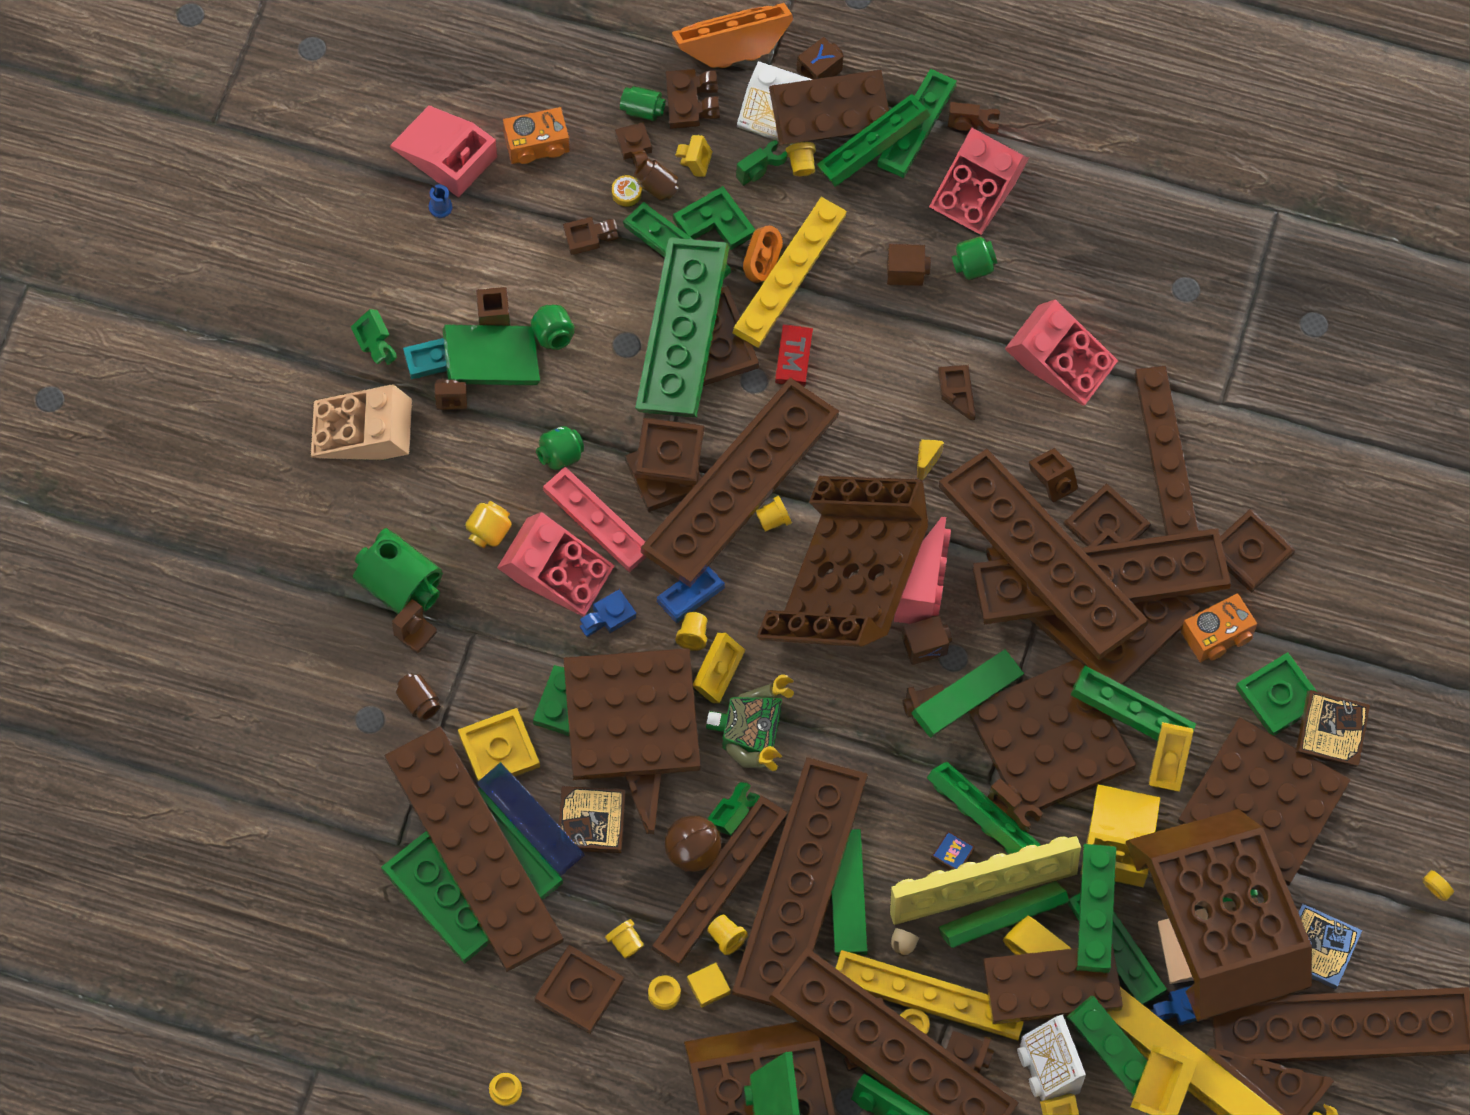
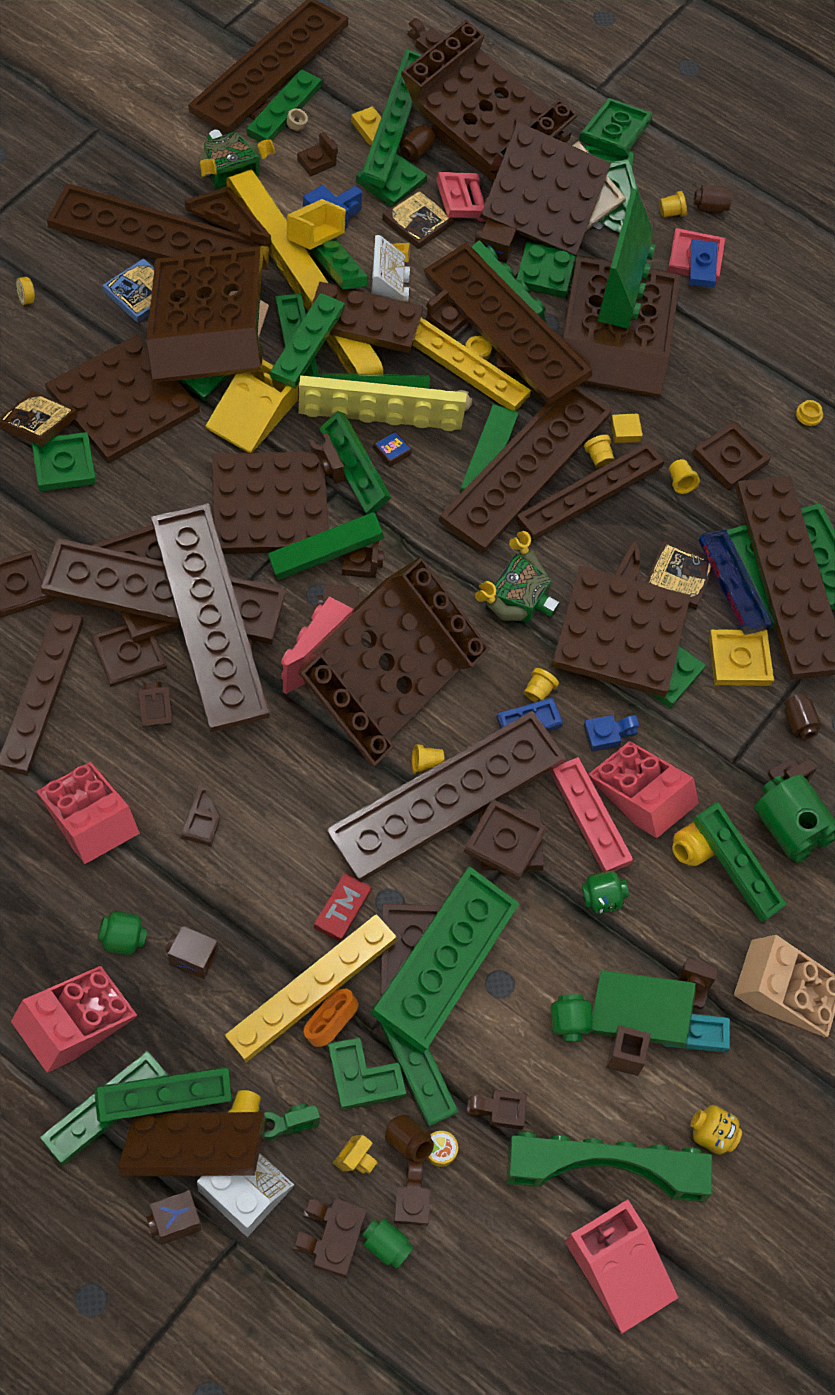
camera: 165 degrees left, 5 degrees down
(370, 334) = (755, 1077): green plate -> none
(395, 278) = (716, 1129): none -> yellow head
(420, 234) = (678, 1174): none -> green arch
(440, 204) = (643, 1208): blue pin -> none
(442, 515) = (739, 861): none -> green tile
(536, 136) = (517, 1244): orange brick -> none
(664, 992) = (663, 435): yellow tile -> none
(692, 843) = (606, 514): reddish brown piece -> none
(718, 667) = (530, 647): yellow plate -> none
(731, 811) = (565, 534): green plate -> none
(735, 36) = (256, 1289): orange wedge -> none
(928, 455) = (262, 758): yellow slope -> none
(968, 116) = (51, 1092): reddish brown plate -> none
(1124, 703) = (194, 485): green plate -> none
(1170, 756) = (182, 440): yellow plate -> none
(1177, 1007) = (271, 288): blue plate -> none
(1219, 628) = (83, 522): orange brick -> none

